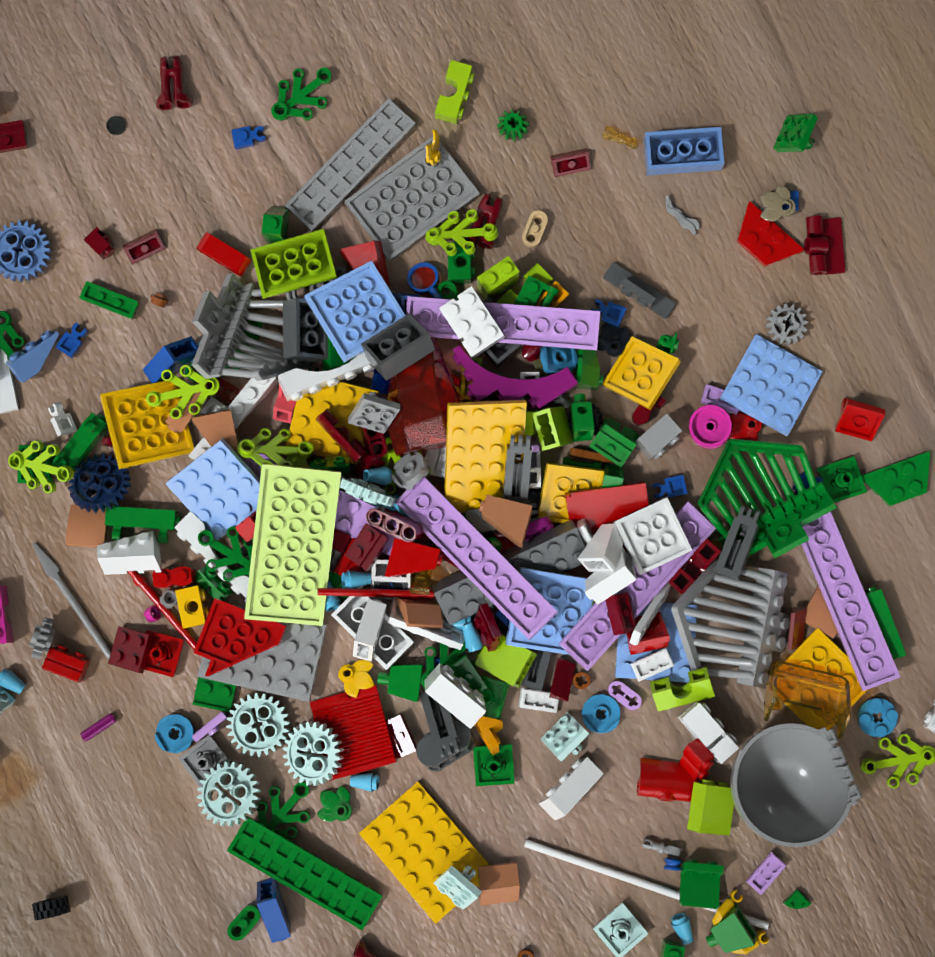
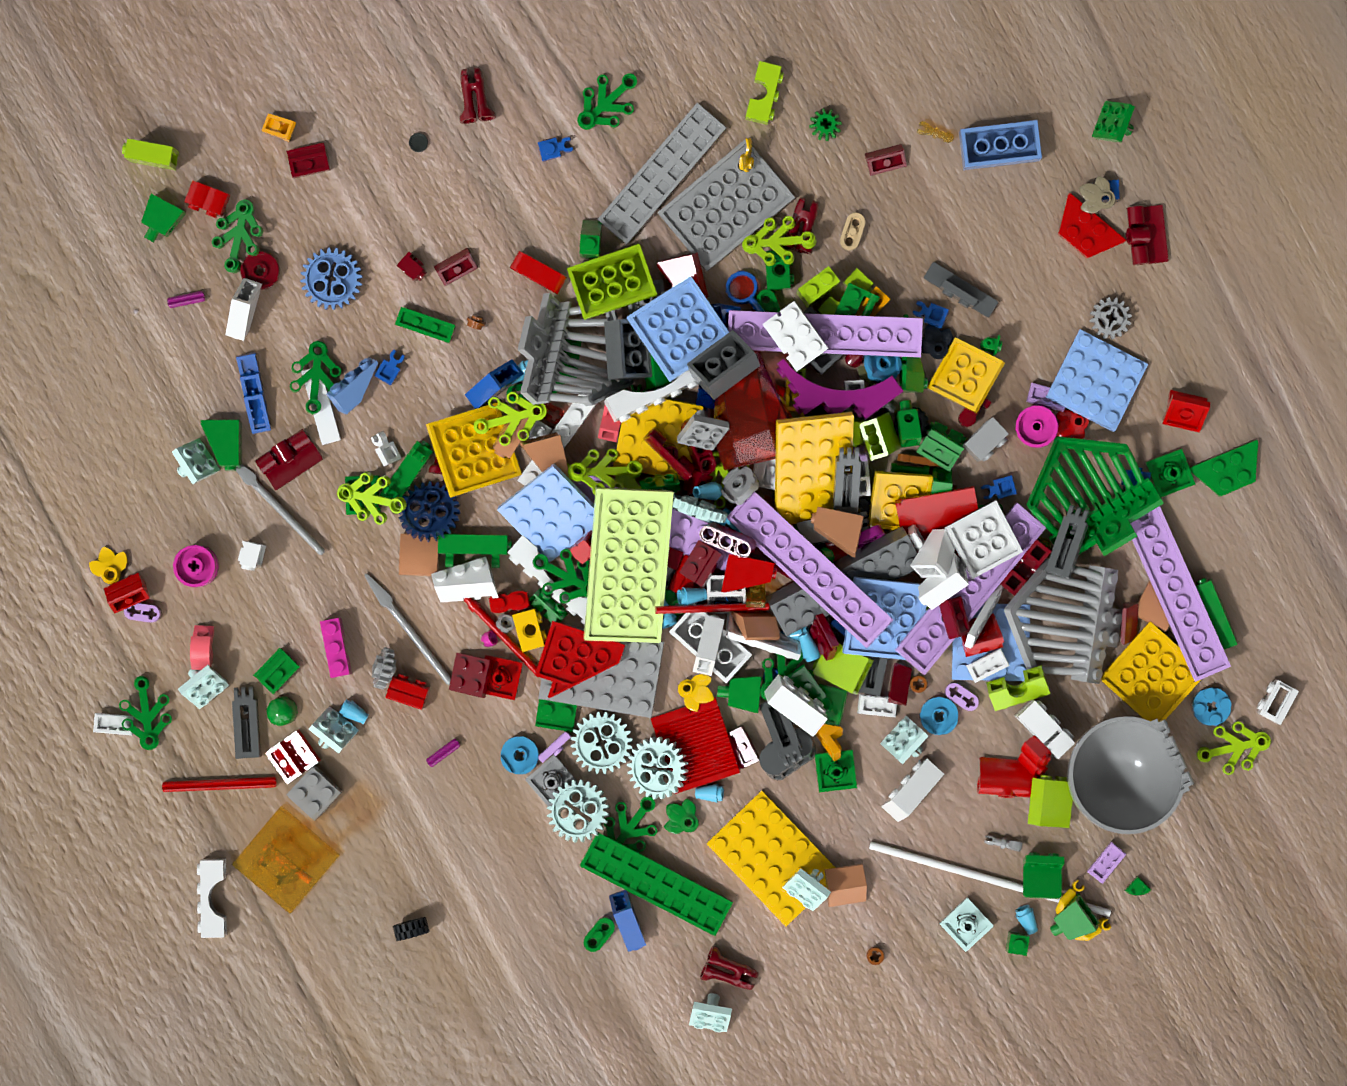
camera: 10 degrees left, 5 degrees up
(672, 864) = (1015, 858): blue bush -> none
(685, 223) = (1005, 218): light grey hair -> none
(809, 689) = (1142, 682): clear yellow windscreen -> none

